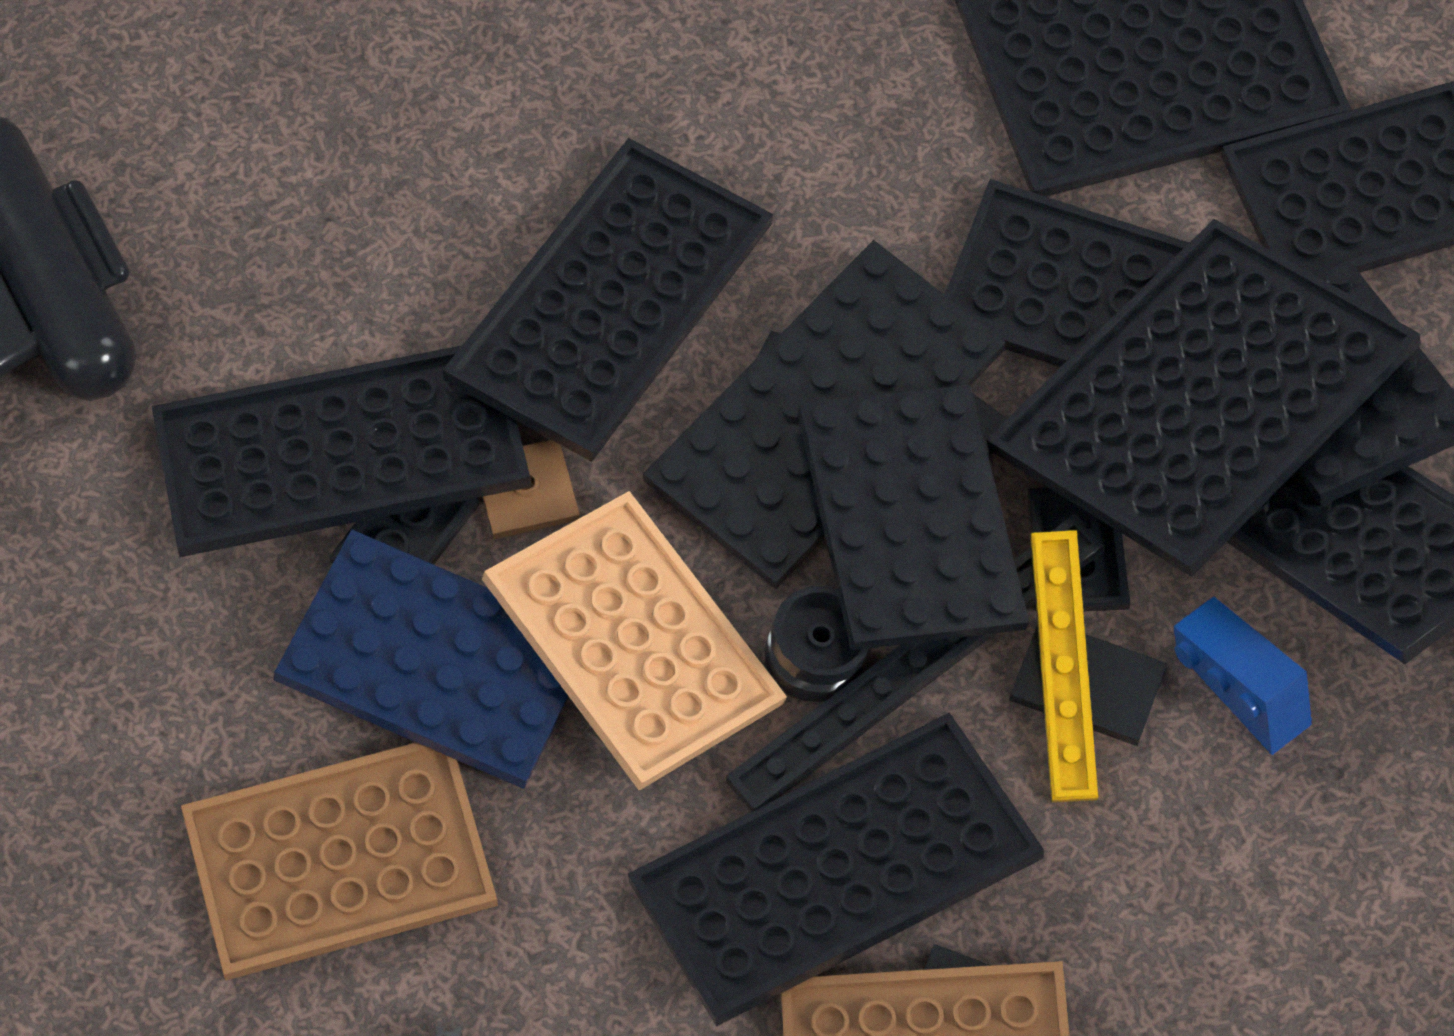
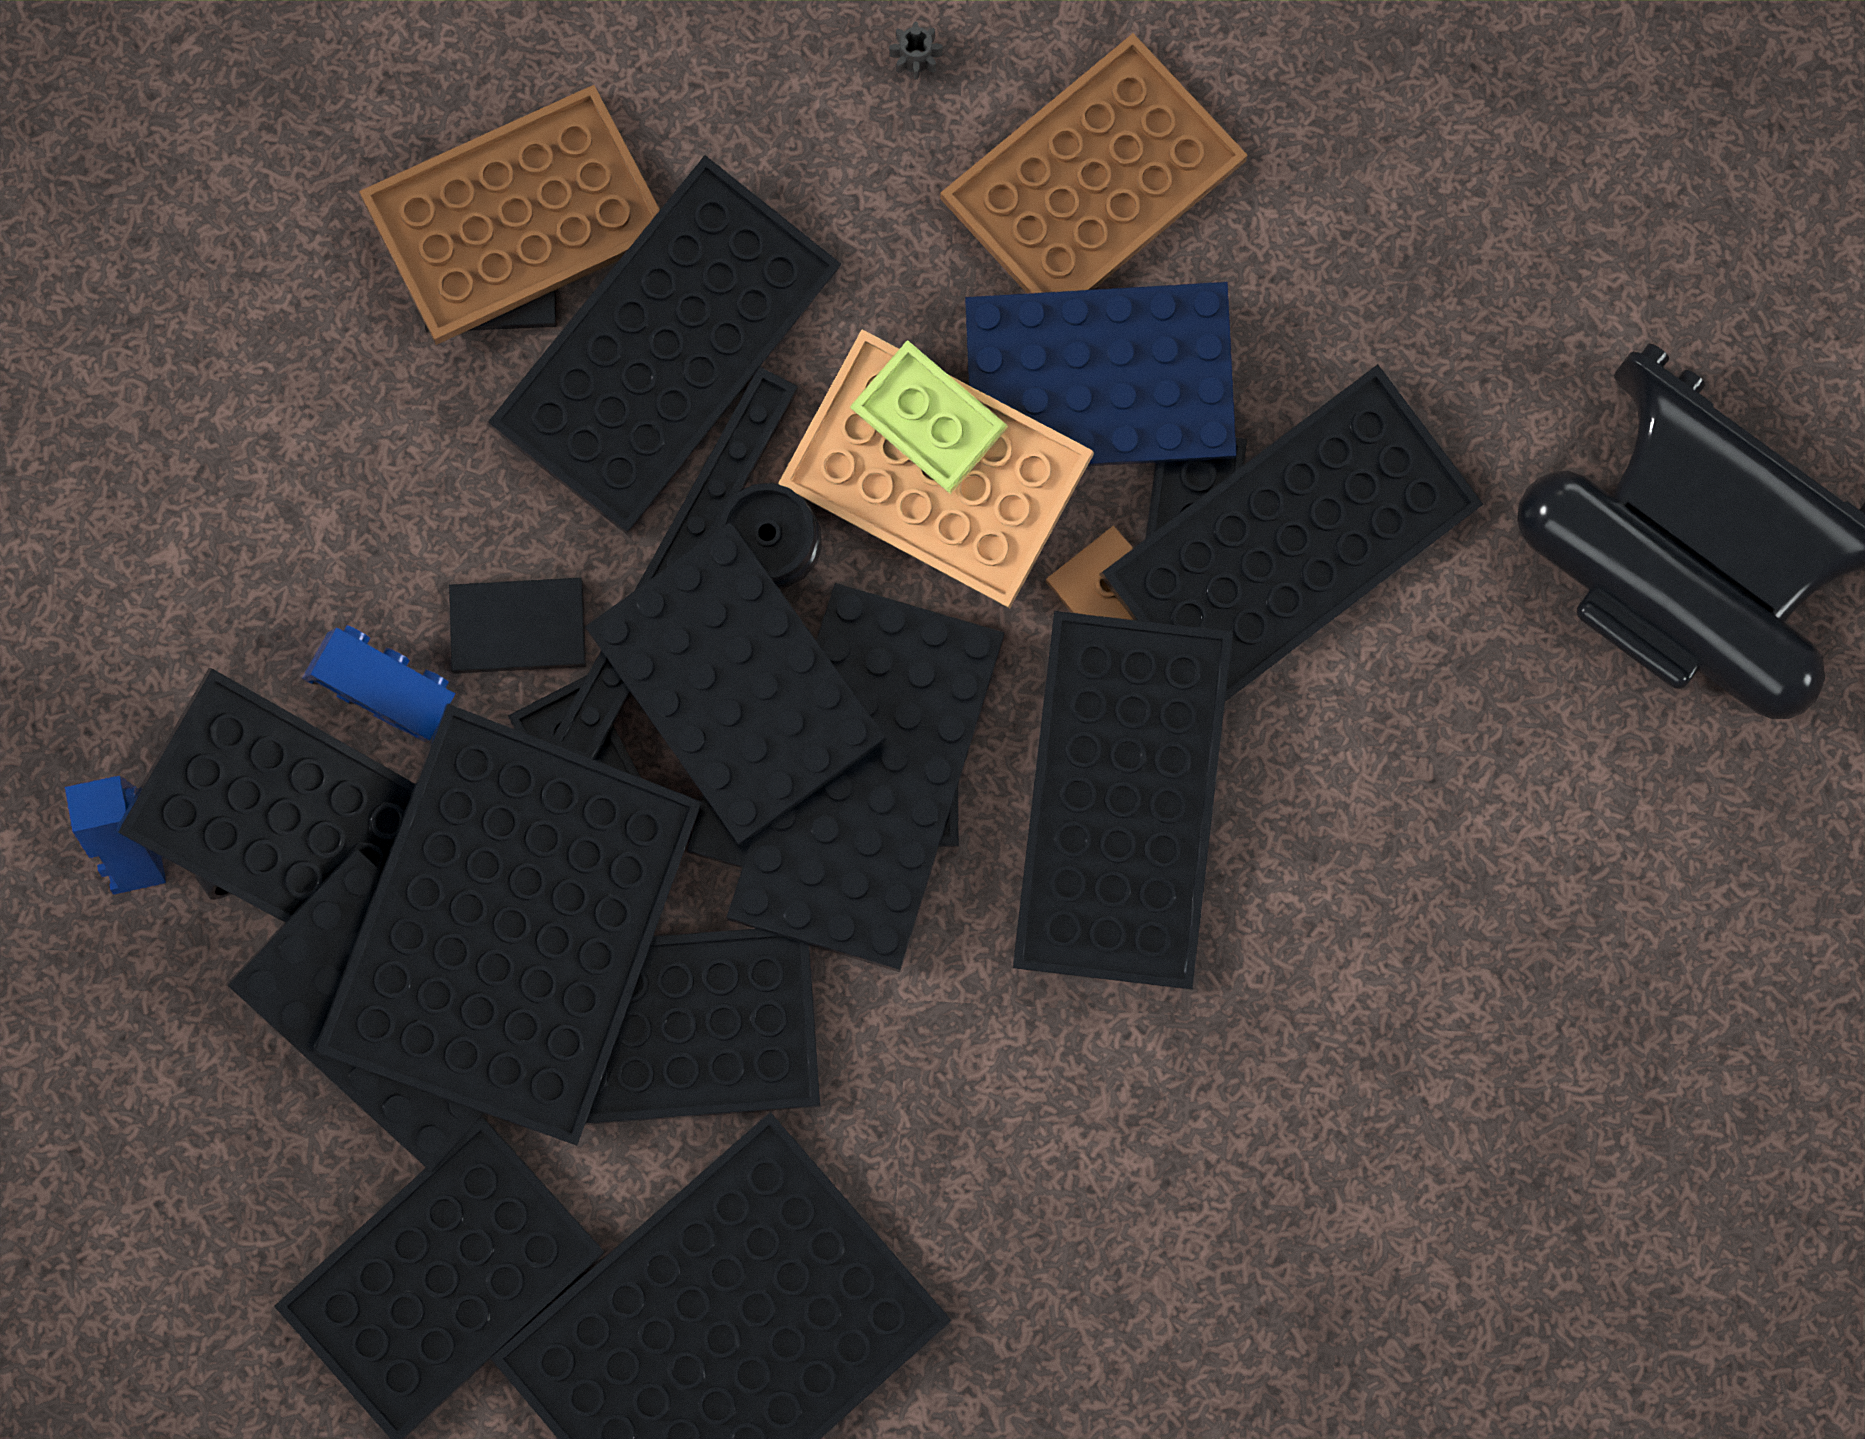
camera: 155 degrees right, 15 degrees up
(619, 672) = (929, 417): none -> yellowish green tile
(1064, 666) = (541, 615): yellow tile -> none

